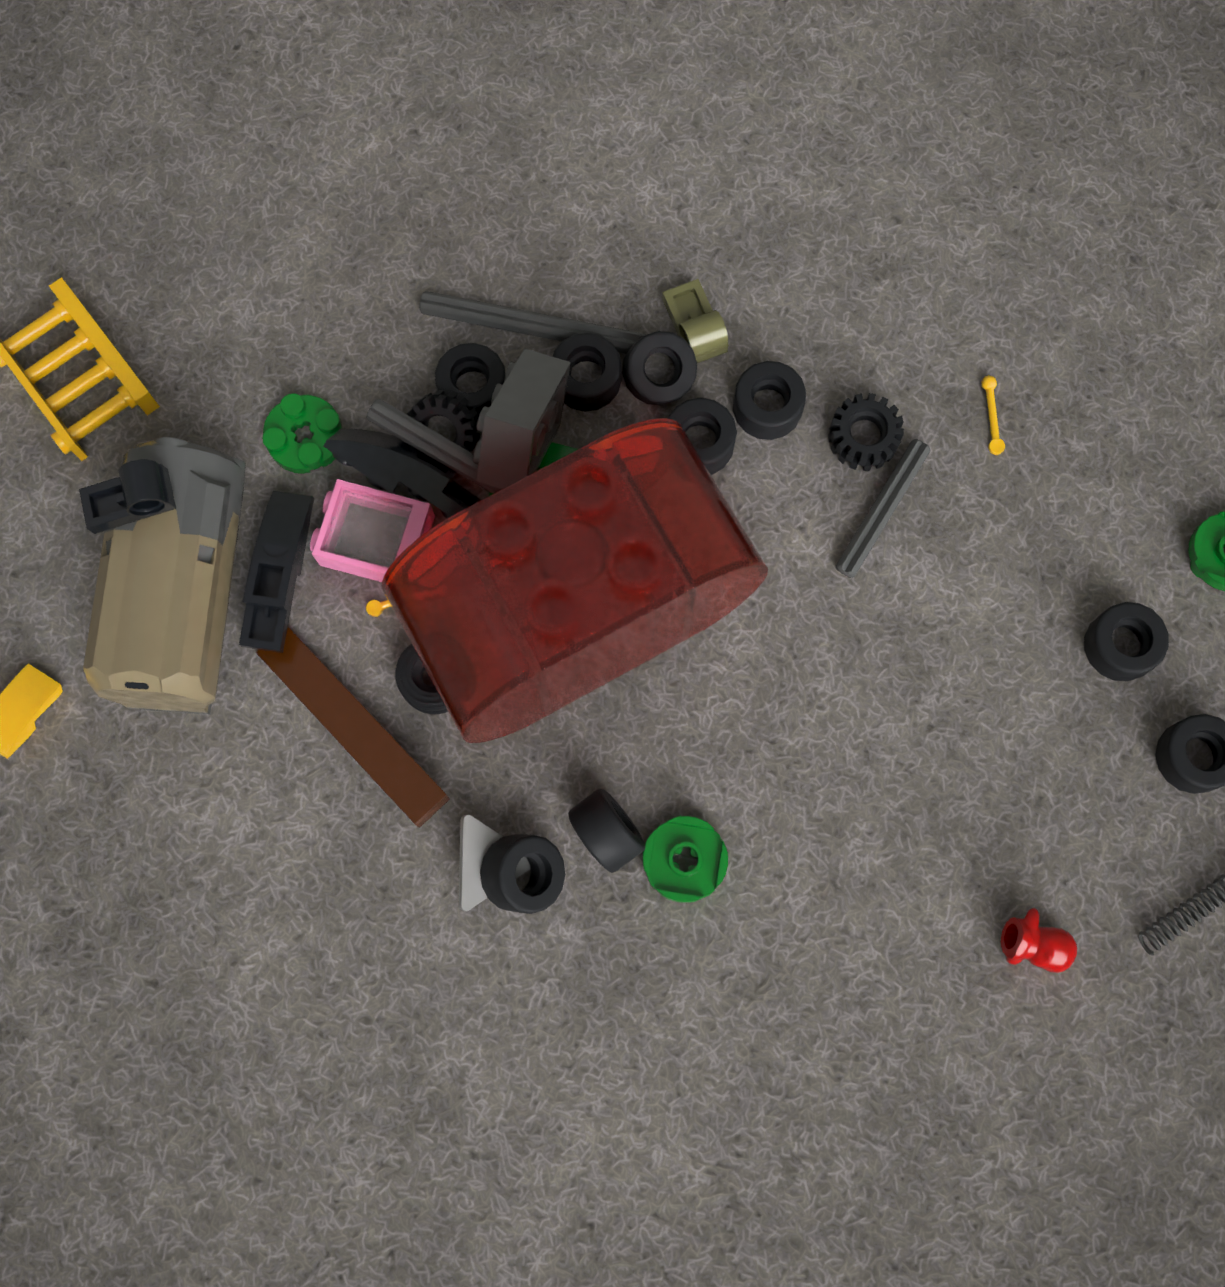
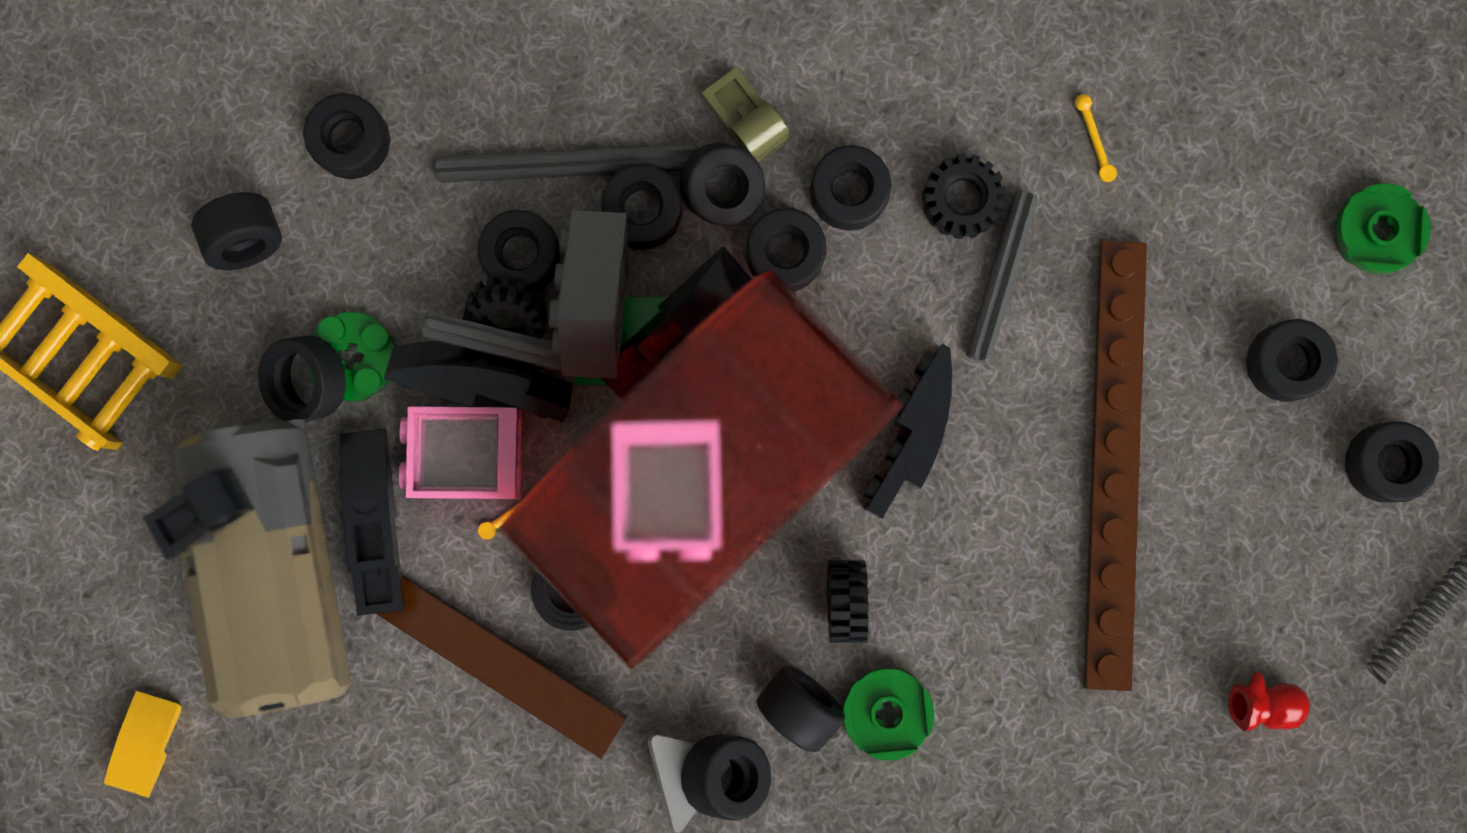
camera: 15 degrees left, 10 degrees up
(239, 305) = (236, 231): none -> black tyre
(276, 438) = (327, 372): none -> black tyre
(361, 276) = (331, 112): none -> black tyre
(535, 551) = (666, 492): none -> window
(674, 745) = (847, 601): none -> black tyre
(782, 608) = (925, 420): none -> black slope
(944, 700) = (1115, 466): none -> reddish brown plate

